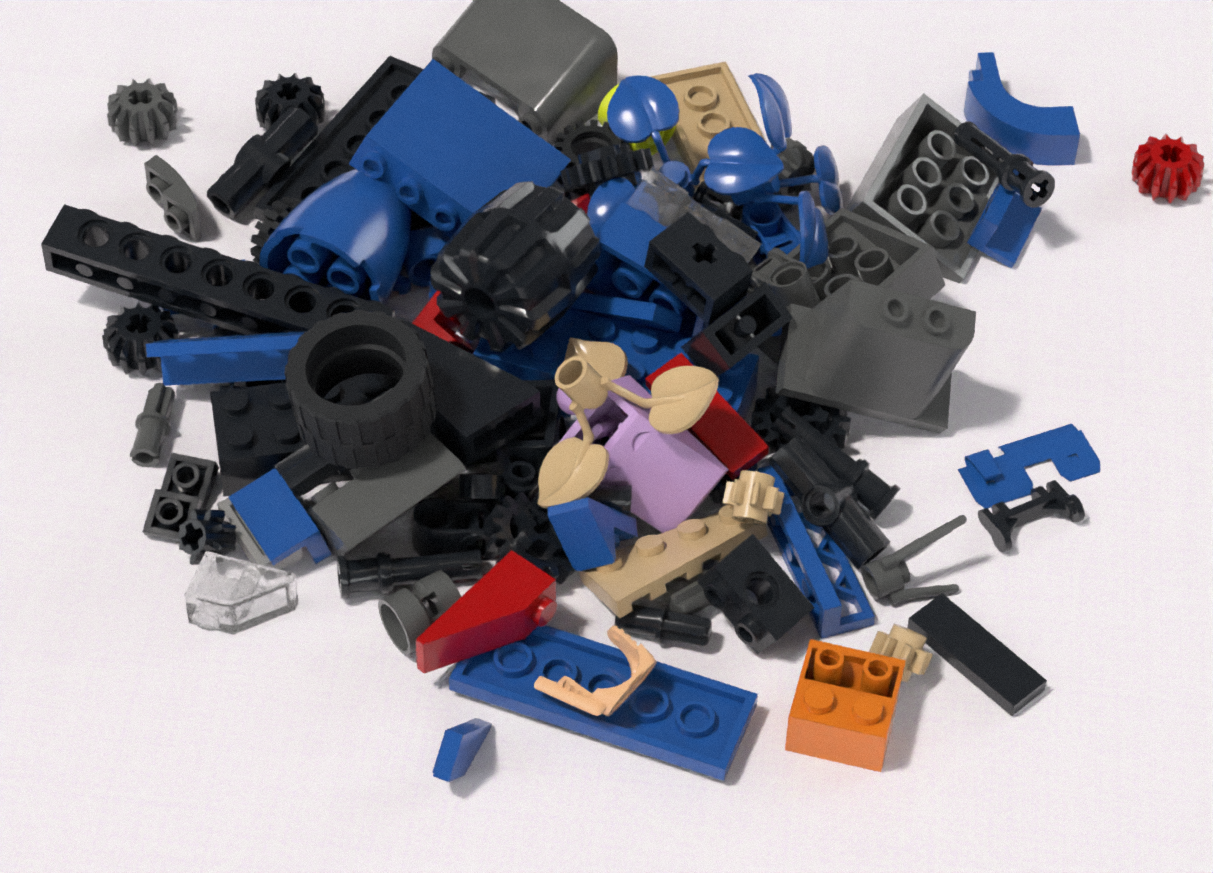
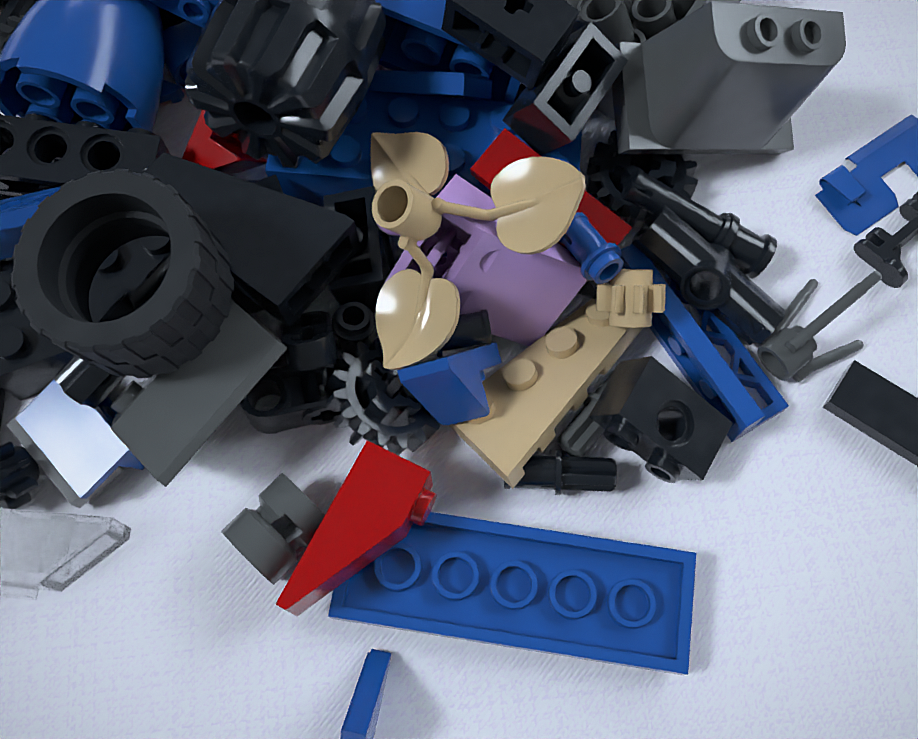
camera: 10 degrees left, 20 degrees up
(384, 573) = (224, 474): black pin -> none
(604, 700) = (534, 621): light nougat helmet -> none
(728, 456) = (597, 258): none -> blue pin
(844, 705) = (805, 546): orange slope -> none
(904, 645) = (840, 456): tan gear -> none

